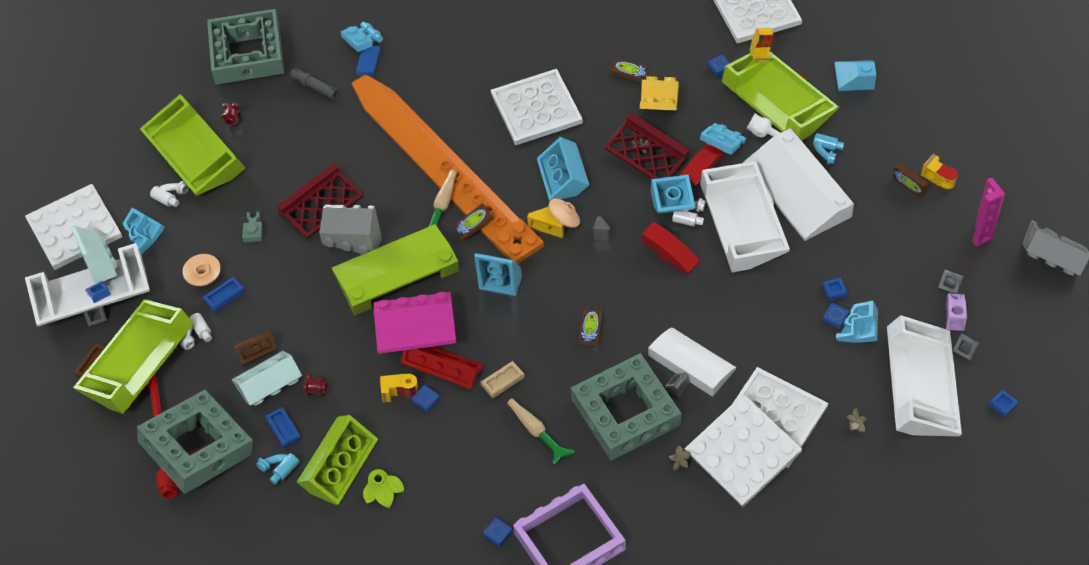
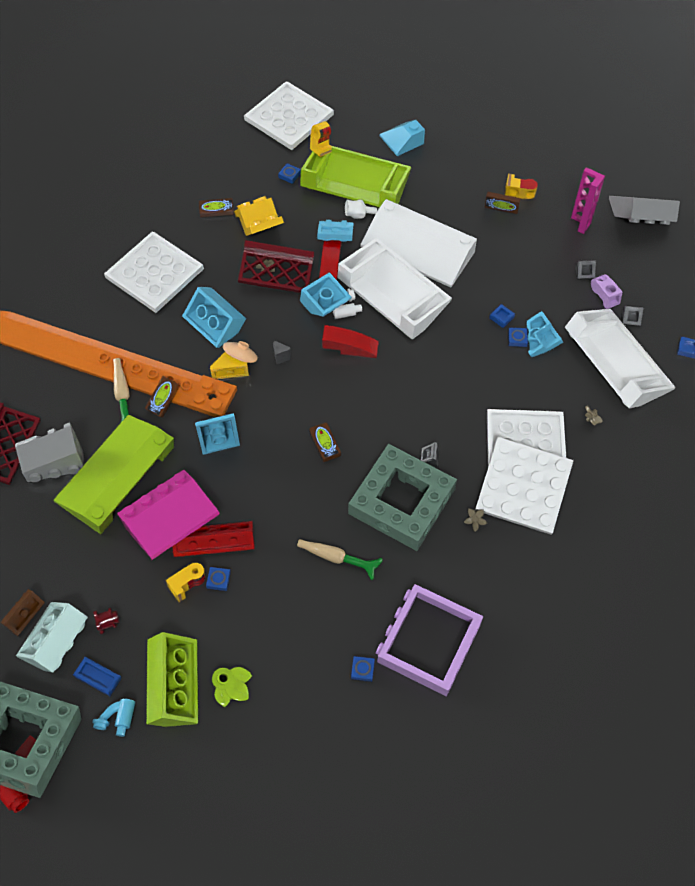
camera: 35 degrees left, 5 degrees up
(502, 379) = (278, 526): tan plate -> none
(686, 356) = (423, 429): white slope -> none
(822, 141) = (416, 200): medium azure plant -> none

